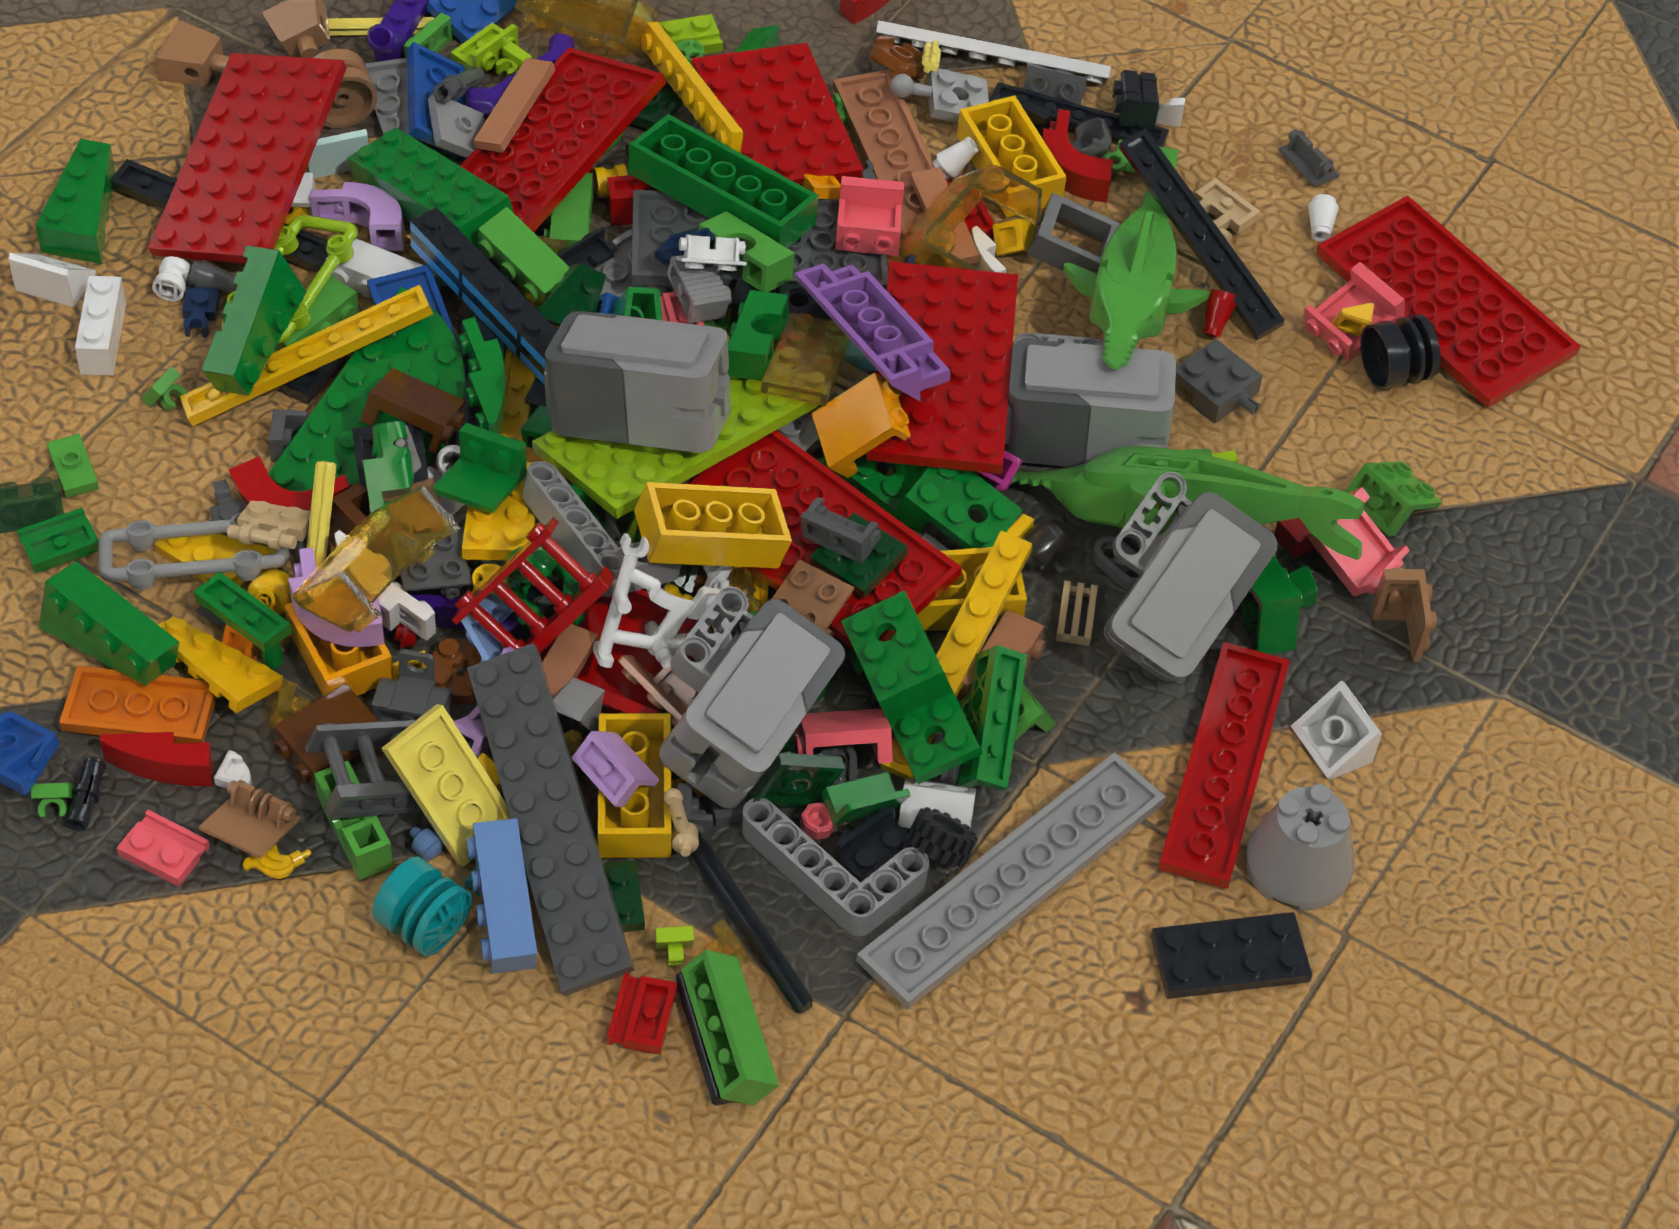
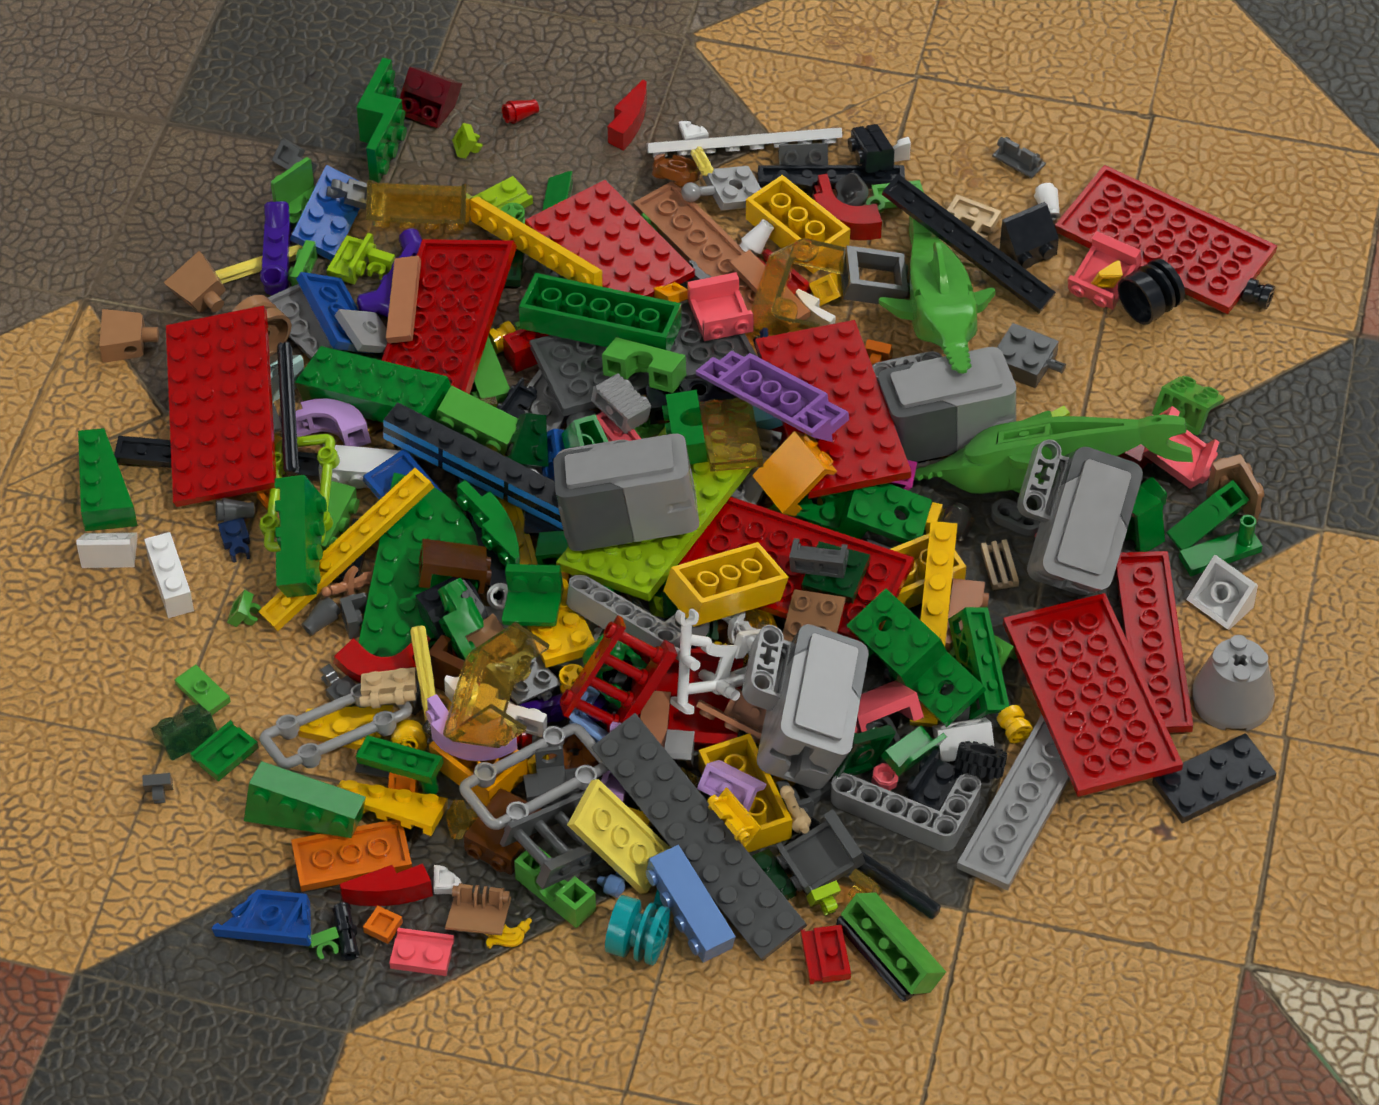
camera: 15 degrees left, 0 degrees up
(132, 800) = (382, 924): none -> orange plate
(172, 279) = (203, 520): white wheel -> none
(248, 424) = (323, 614): none -> dark grey cone
(295, 398) = (349, 583): none -> nougat piece
(320, 182) = (287, 409): none -> black axle
(328, 660) = (486, 773): none -> light grey bar
(456, 85) = (350, 295): dark grey pin -> none
(599, 810) = (734, 816): none -> yellow hinge
(671, 245) = (593, 373): dark blue plate -> none
(690, 889) = (820, 855): none -> dark grey panel
(698, 253) = (636, 373): white hinge -> none
(938, 23) = (692, 131): none -> white tile
(1006, 805) = (1014, 723): none -> yellow wheel
(1040, 322) = (878, 351): none -> orange tile
(1116, 804) = (1092, 694): none -> red plate
(1217, 312) = (1004, 301): red cone -> none
(1279, 247) = (1029, 236): none -> black slope
(1358, 634) = (1208, 516): none -> green slope
(1364, 680) = (1227, 547): none -> green piece
(1535, 395) = (1258, 293): none -> black wheel

